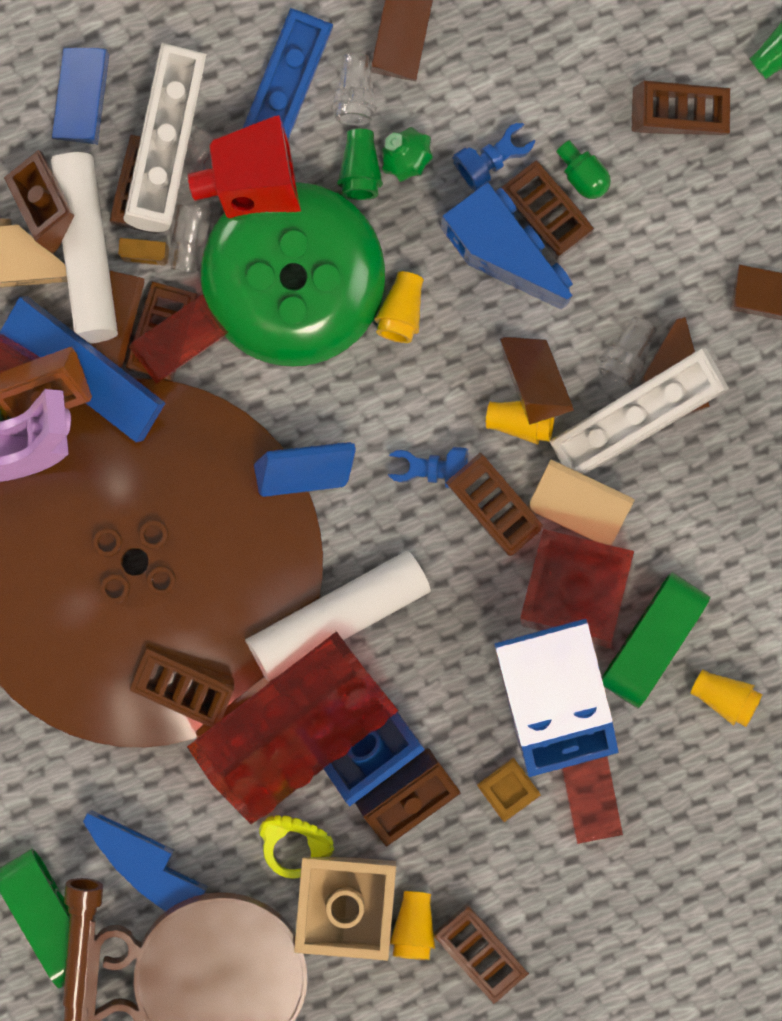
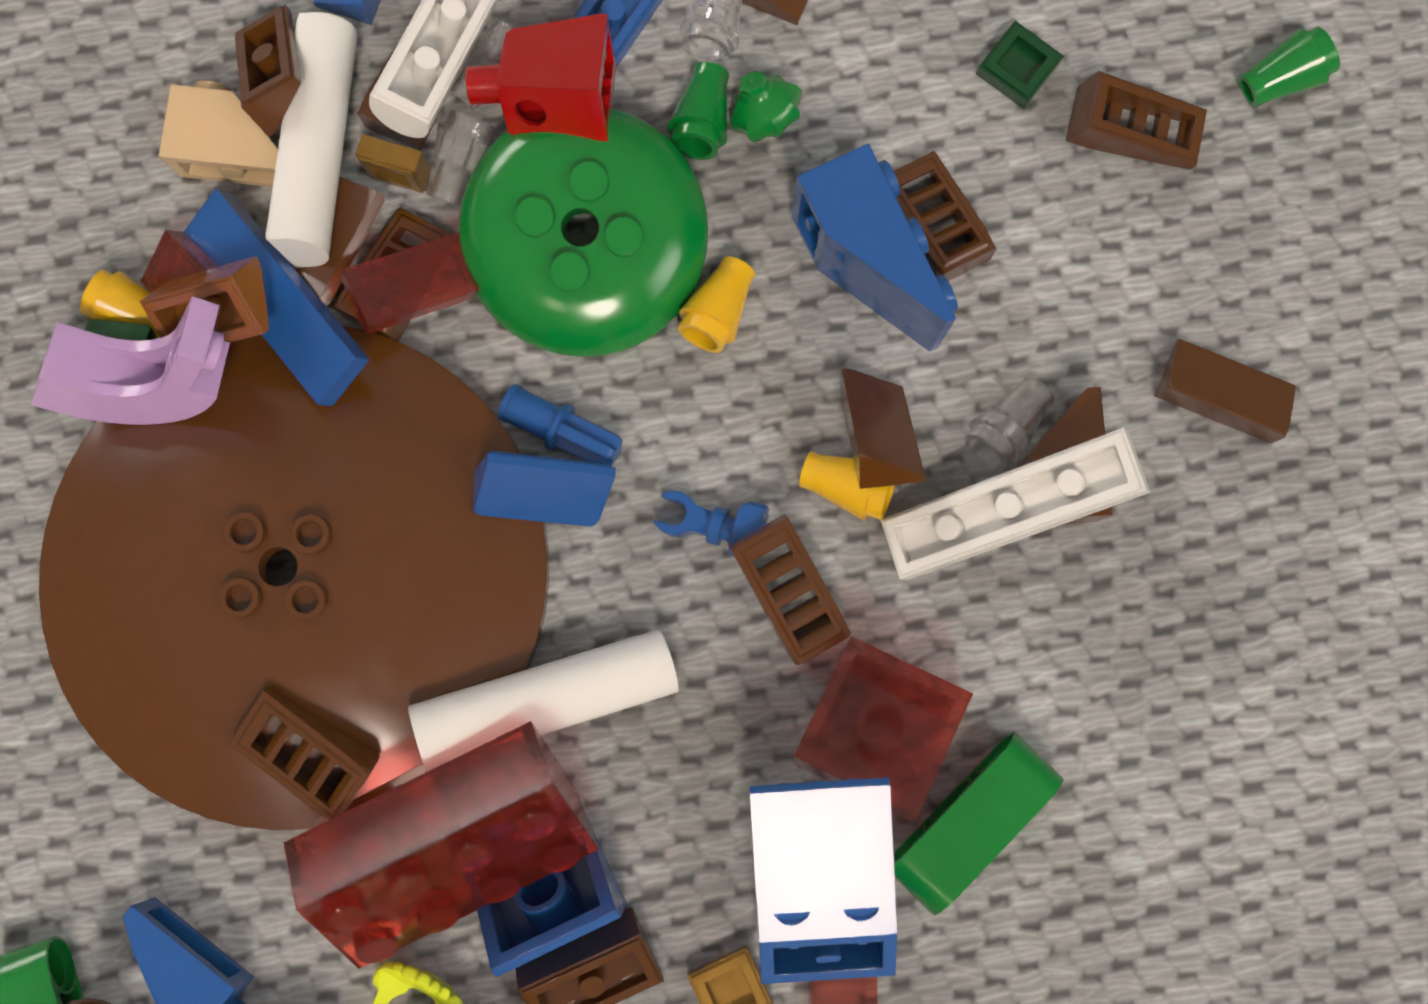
camera: 15 degrees right, 5 degrees down
(306, 420) = (559, 426): none -> blue axle
(476, 167) = (847, 133): blue piece -> none
(580, 503) = (908, 612): tan slope -> none
(584, 171) = (996, 176): green cylinder -> none
(586, 80) = (1019, 64): none -> dark green tile
(728, 697) = (1062, 925): yellow cone -> none

